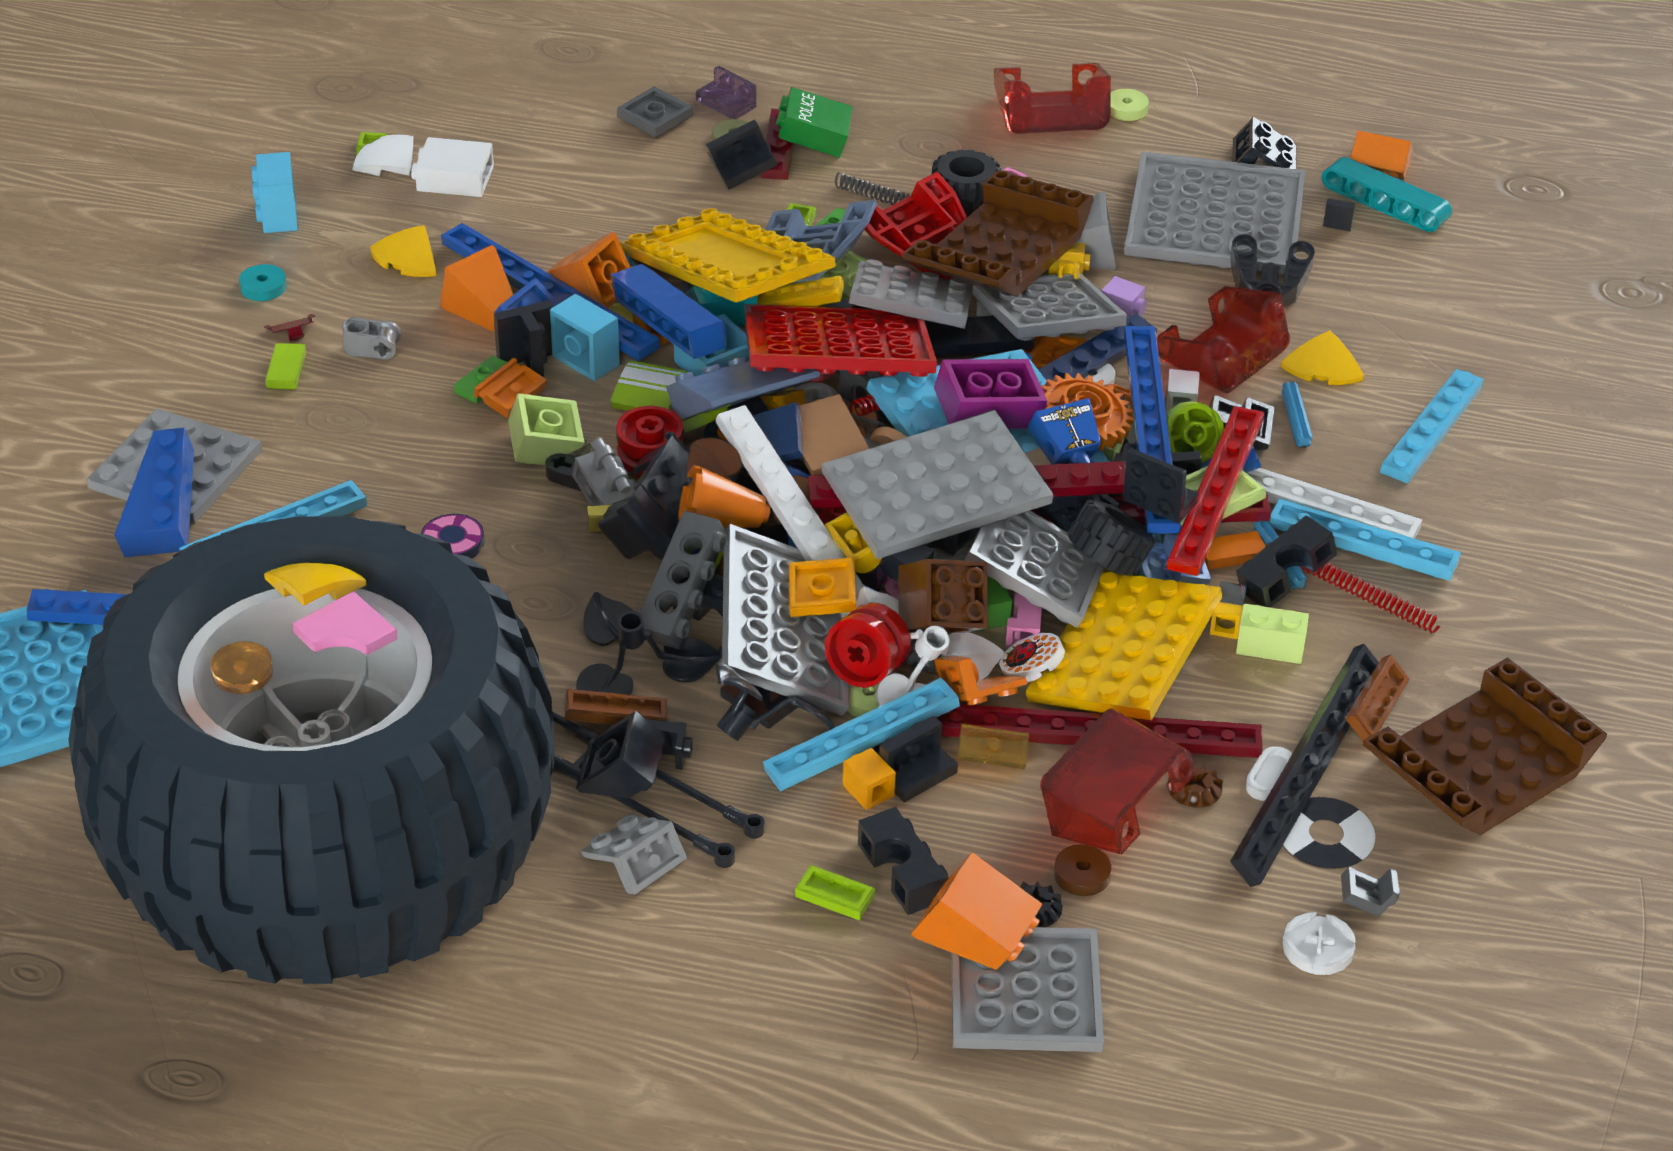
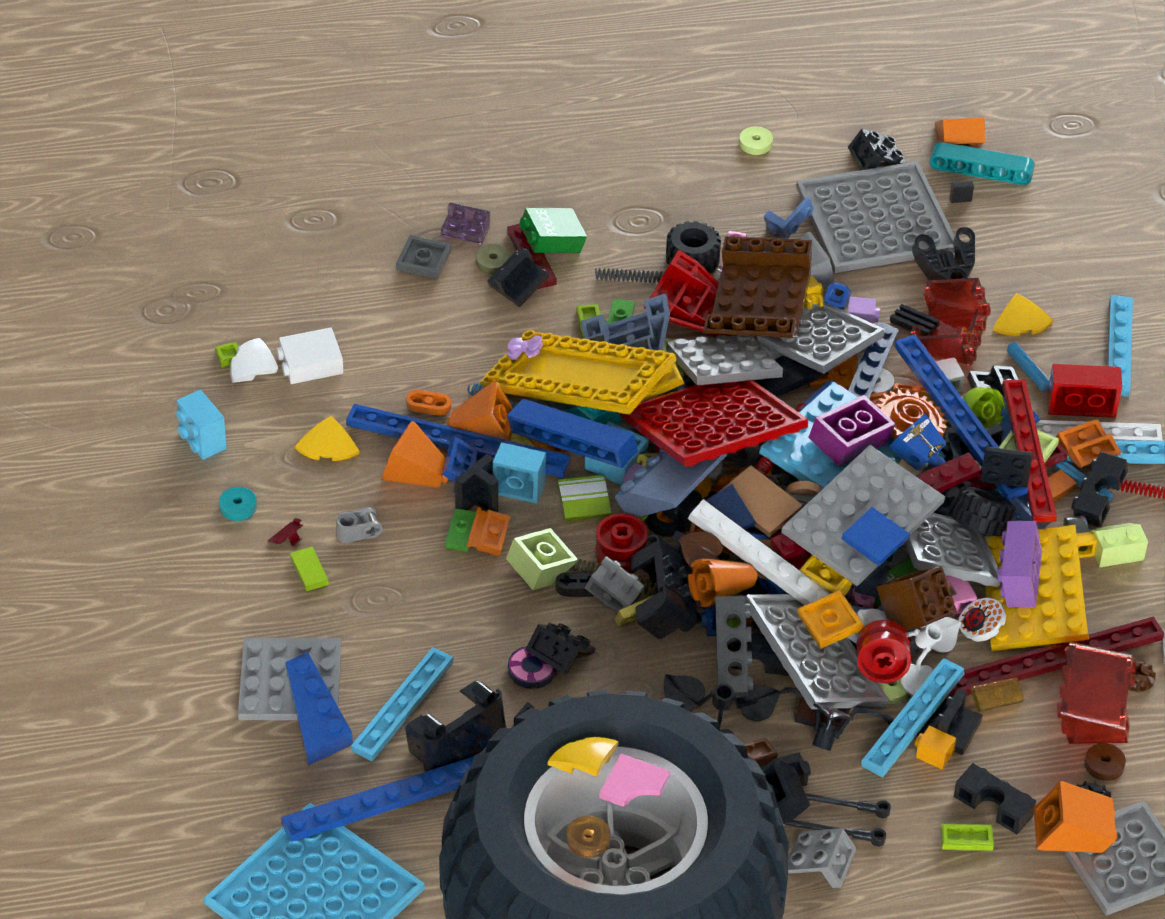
camera: 25 degrees left, 5 degrees up
(487, 517) = (557, 645): none -> black bracket
(546, 245) = (428, 402): none -> orange plate
(690, 219) = (529, 347): none -> lavender piece
(927, 506) = (875, 536): none -> blue tile
(963, 679) = (963, 652): orange bracket -> none
(1054, 111) = (710, 160): clear red windscreen -> none
(1100, 269) = (838, 295): none -> blue rock
(1109, 602) = (1020, 564): none -> medium lavender brick
(1112, 183) = (786, 227): none -> medium blue bracket
(1188, 323) = (916, 317): none -> black tile
(1315, 501) = (1086, 441): none -> orange slope
(1341, 452) = (1084, 390): none -> red brick

